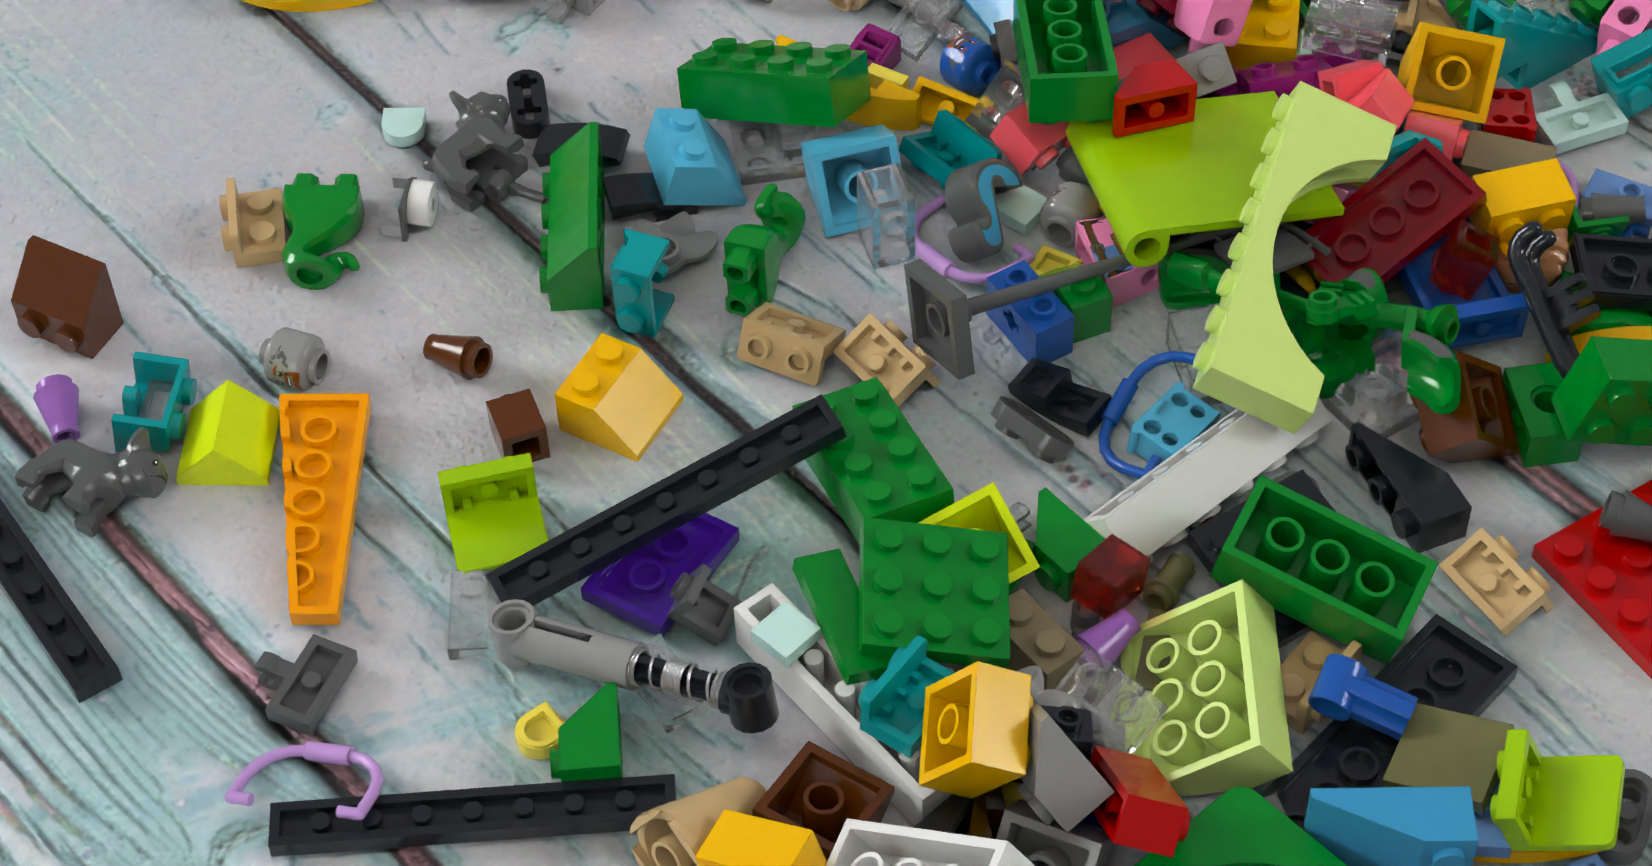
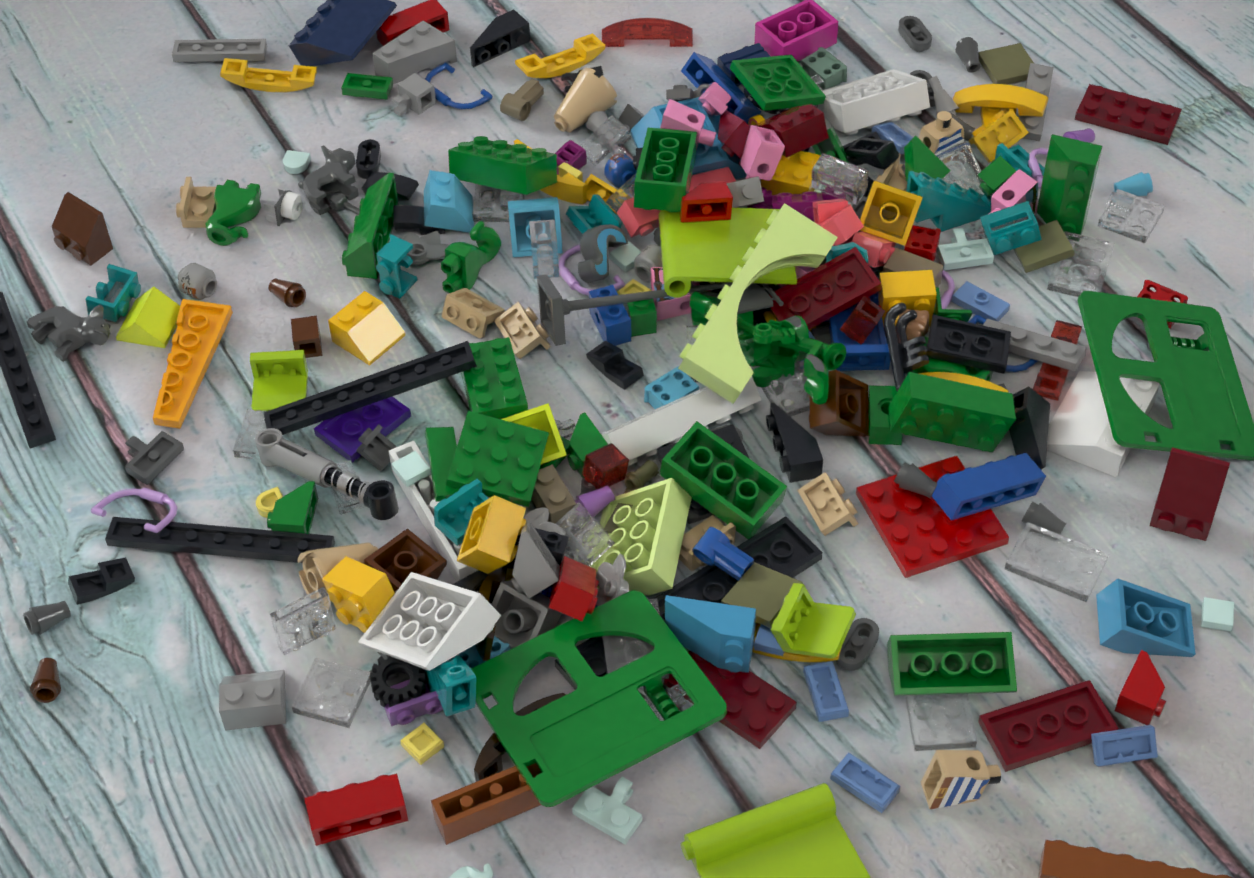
camera: 10 degrees right, 0 degrees up
(59, 406) = (63, 287): medium lavender cone -> none
(1019, 421) = (587, 375): dark grey plate -> none
(1119, 404) = (643, 376): blue piece -> none
(1191, 770) = (611, 580): none -> light grey plate
(1608, 205) = (967, 303): dark grey cone -> none

